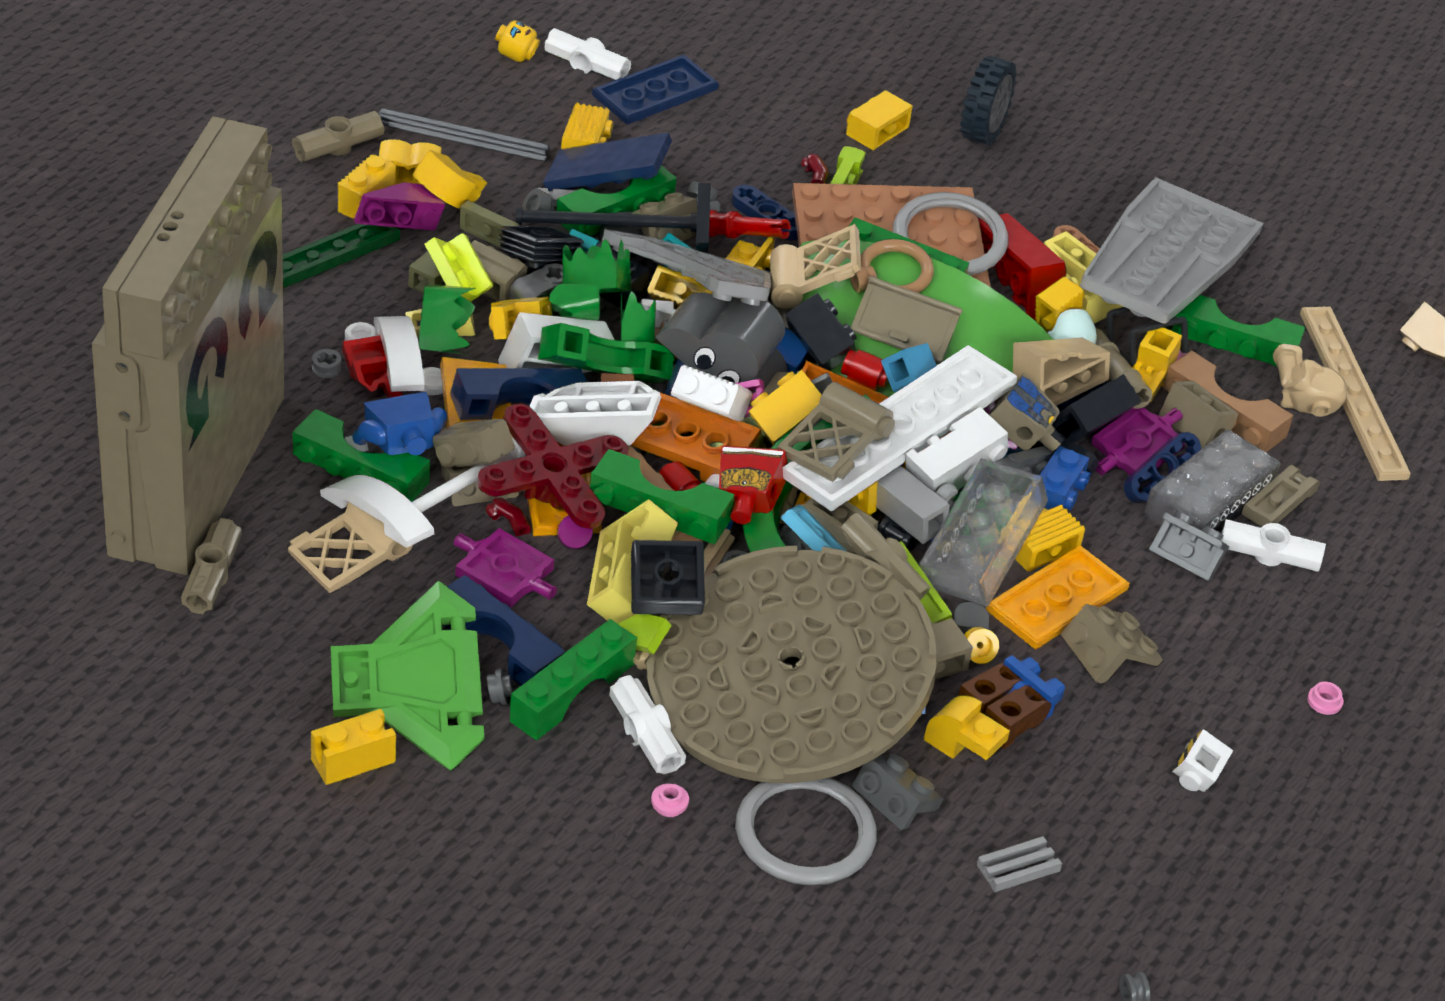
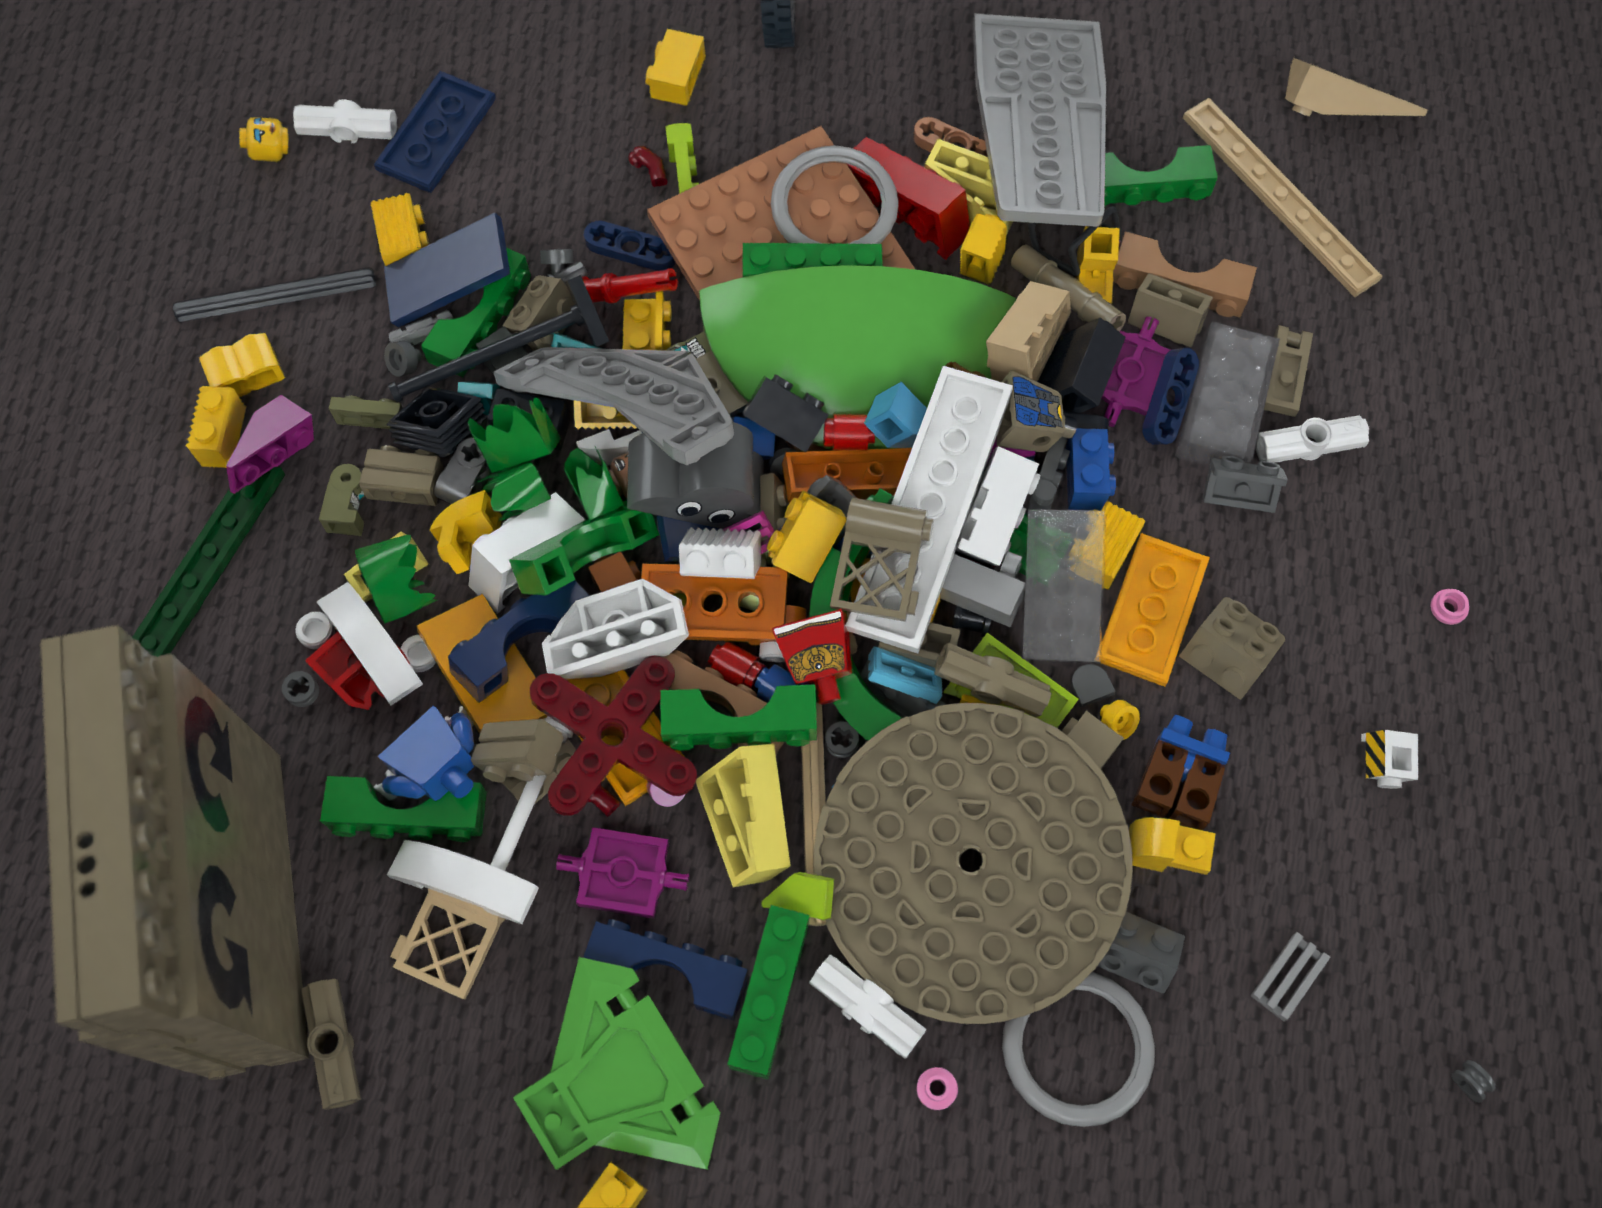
camera: 20 degrees left, 25 degrees up
(338, 136) = (148, 367): dark tan piece -> none
(448, 180) = (298, 384): yellow brick -> none
(459, 265) = (372, 501): neon yellow bracket -> none
(499, 687) = (702, 1039): dark grey plate -> none
(686, 568) = (831, 840): black brick -> none
(792, 268) = (718, 350): tan piece -> none
(860, 280) = (797, 326): medium nougat piece -> none
(905, 317) = (863, 354): dark tan door -> none
(1074, 324) = (1012, 270): light aqua hair -> none
(1307, 384) = (1246, 221): tan head -> none

